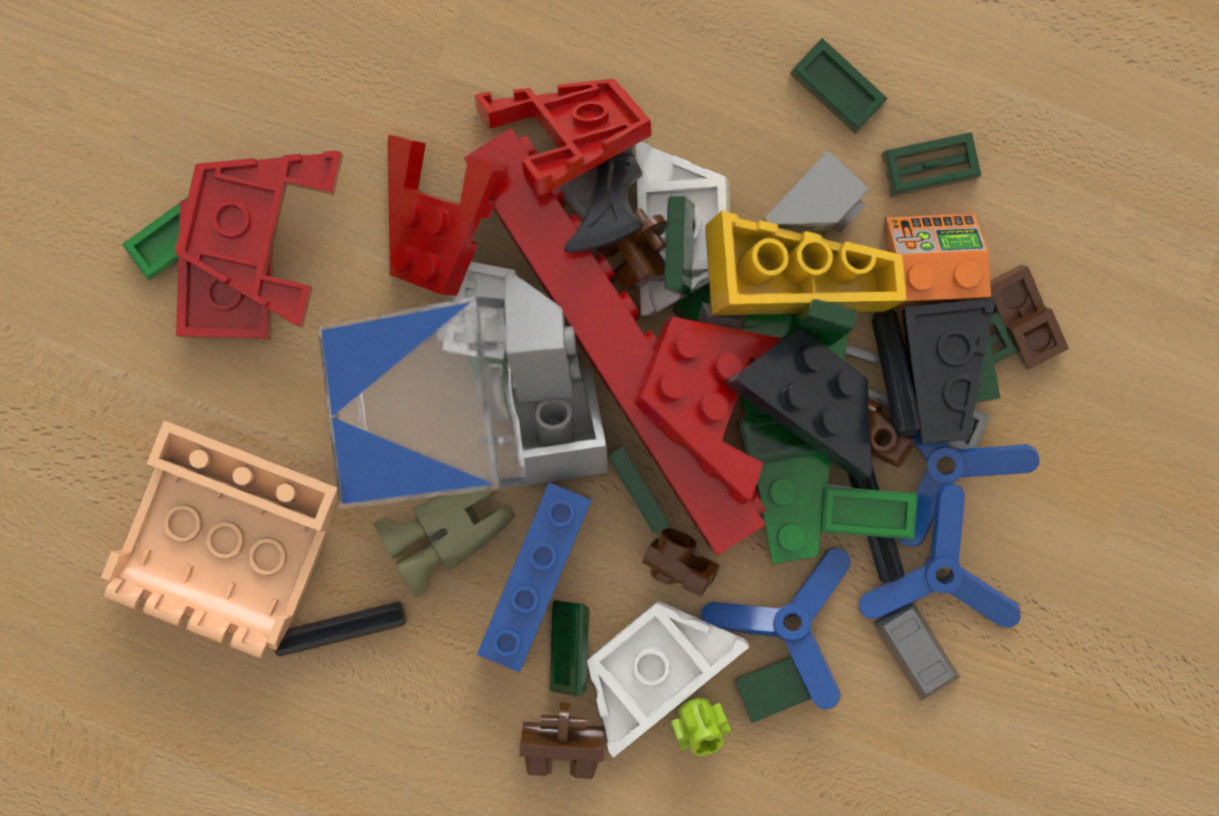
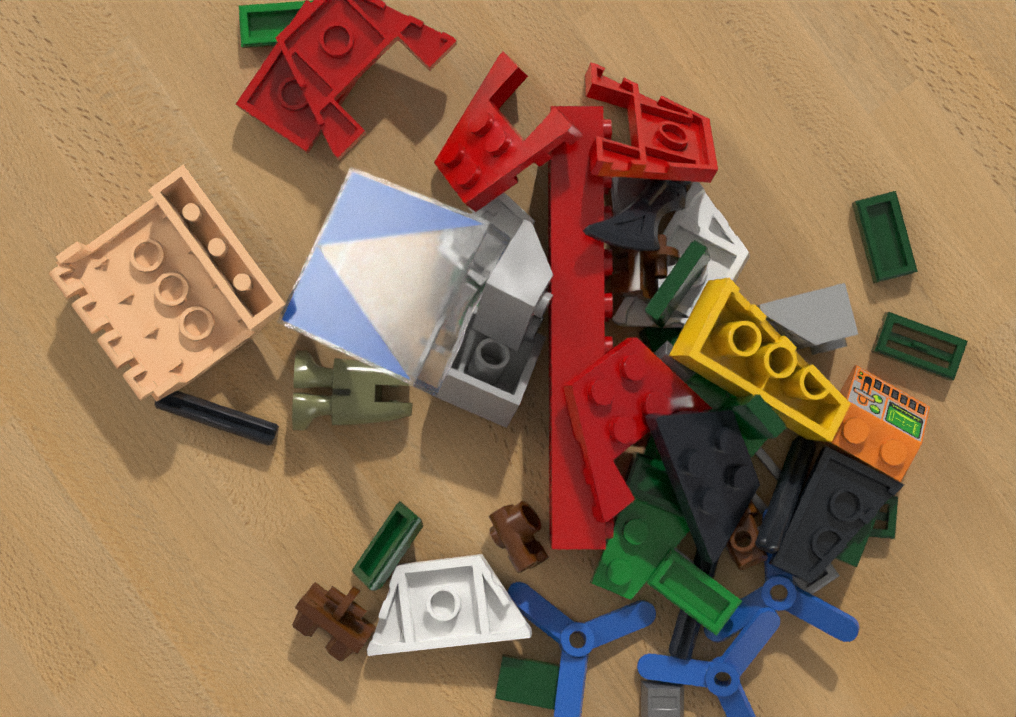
camera: 30 degrees right, 0 degrees up
(534, 577) = (396, 473): blue piece -> none
(638, 490) = (522, 457): dark green tile -> none
(701, 726) = (452, 676): lime gear -> none
(1026, 317) = (918, 516): reddish brown slope -> none

